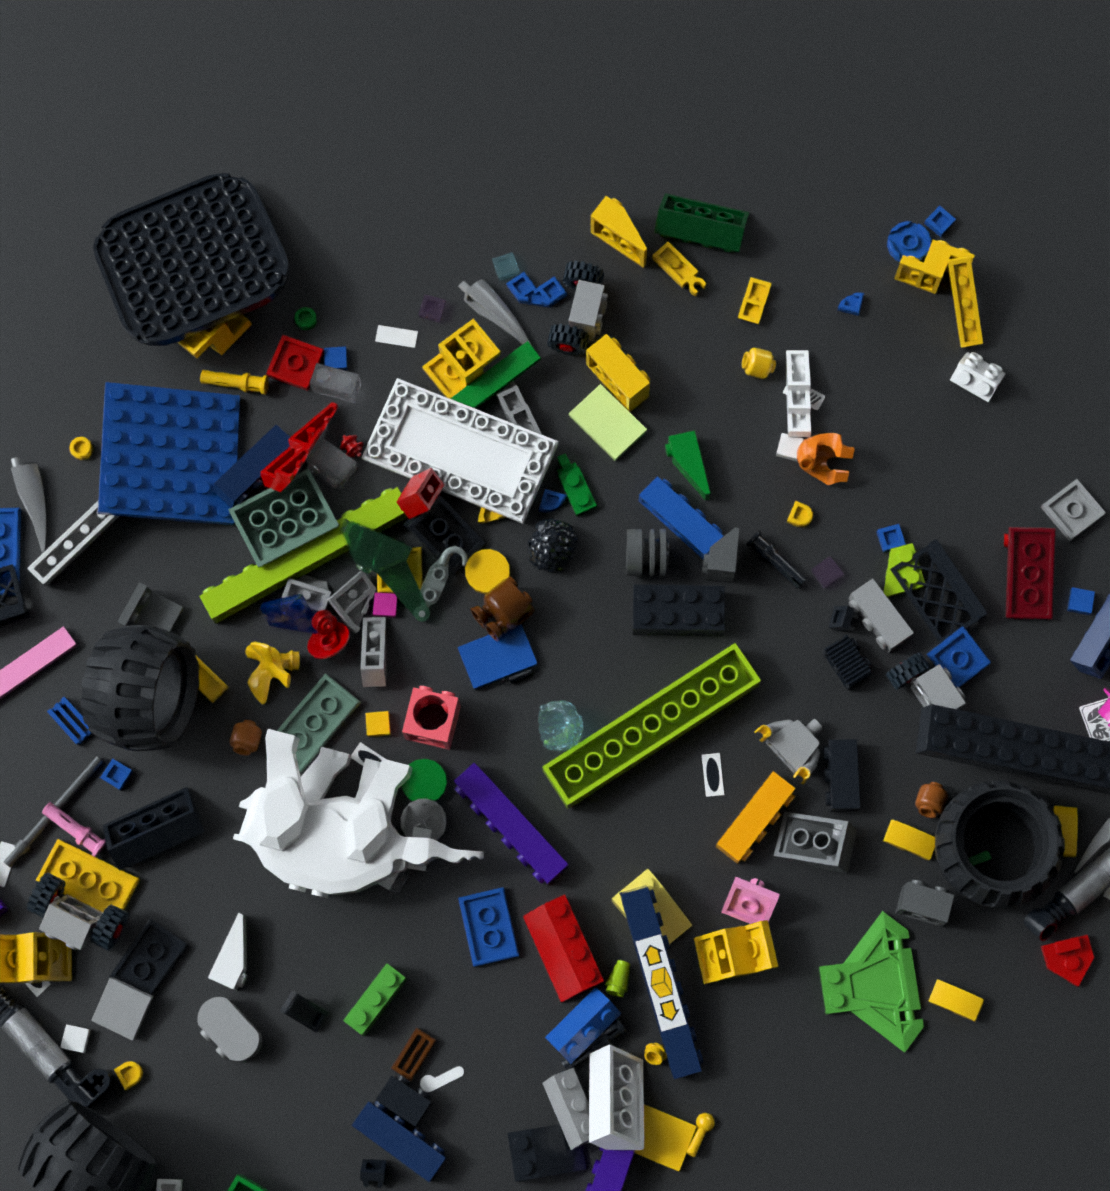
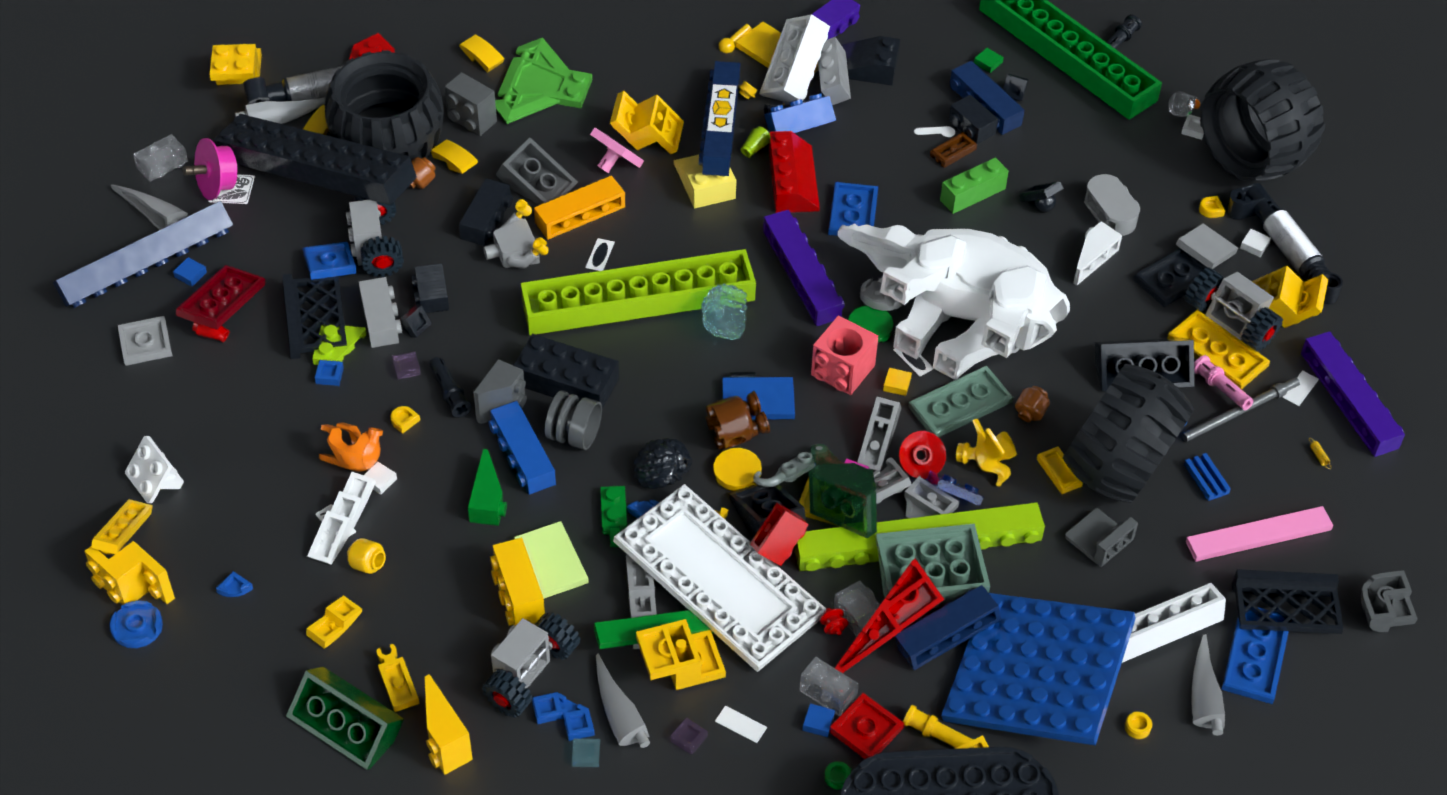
camera: 165 degrees left, 25 degrees down
(324, 622) = (921, 467): red wheel -> none
(940, 221) = (89, 633): blue tile -> none

